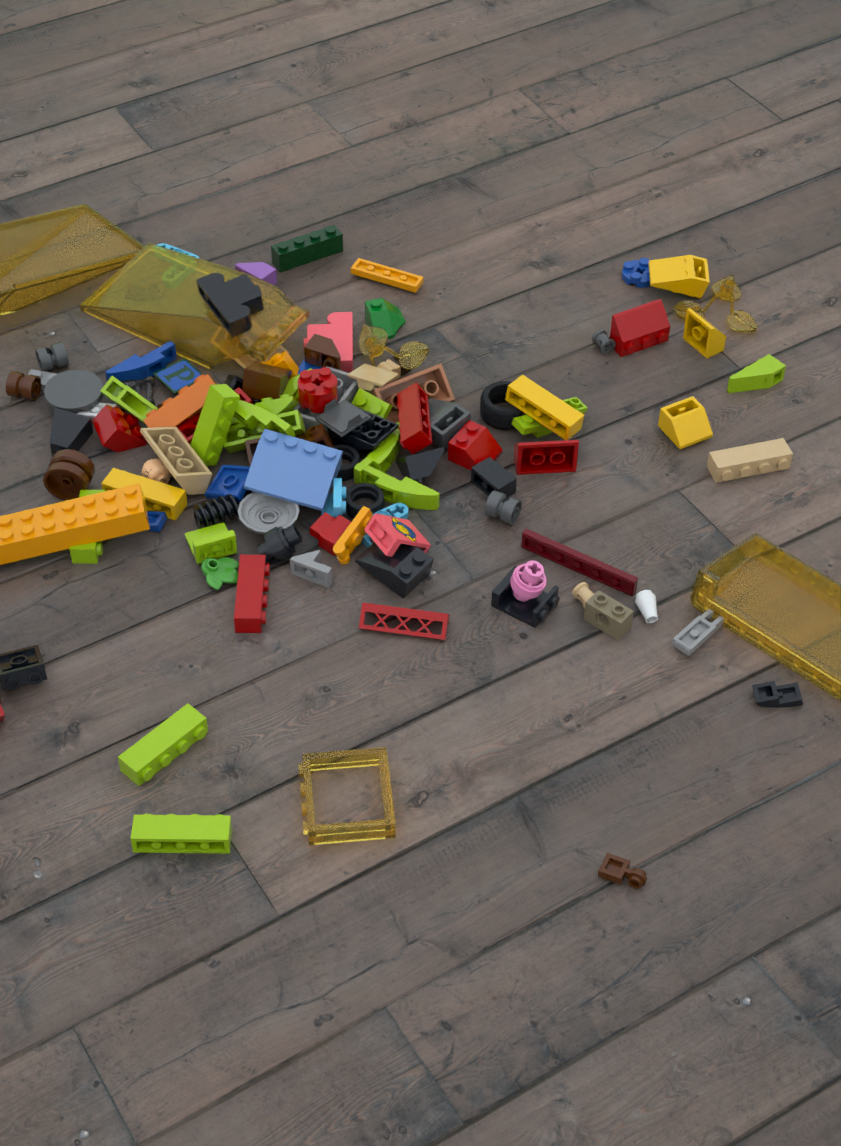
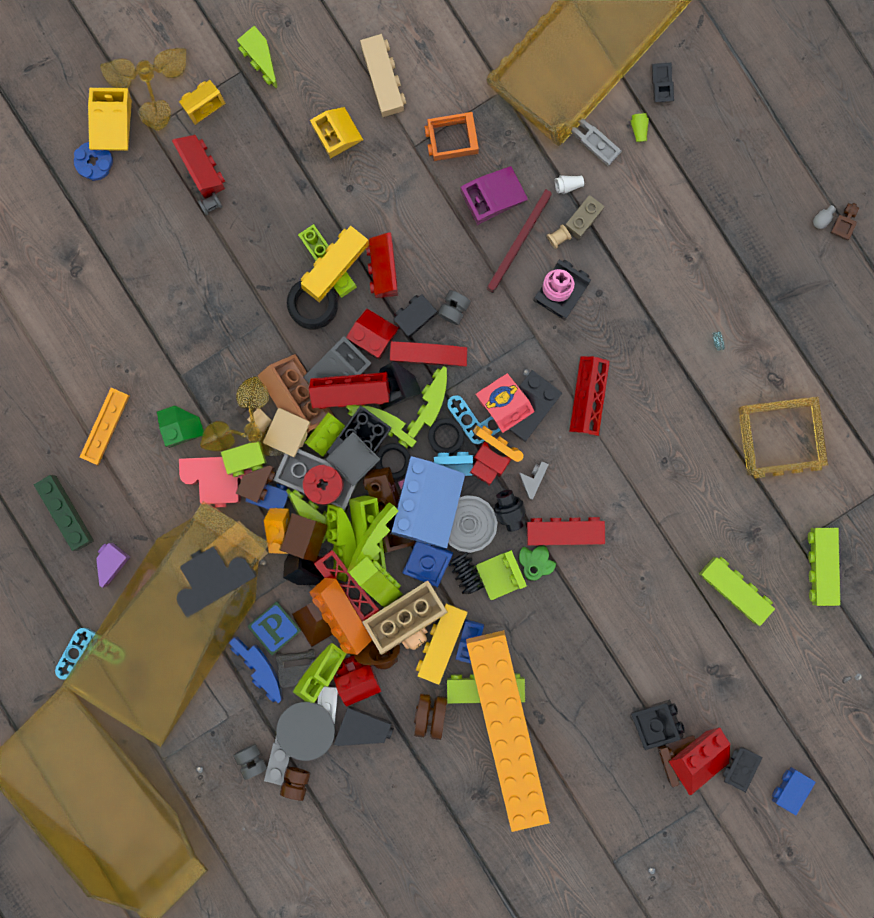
camera: 85 degrees left, 40 degrees up
(137, 445) = (371, 656): none -> reddish brown piece
(349, 346) = (244, 458): none -> lime brick
(453, 488) = (428, 354): none -> red slope
(467, 736) = (718, 341): none -> clear light blue tile
(625, 848) = (824, 217): none -> light grey cylinder
(628, 539) = (493, 194): none -> magenta slope
(694, 525) = (447, 121): none -> orange window
(720, 670) = (640, 126): none -> lime cone

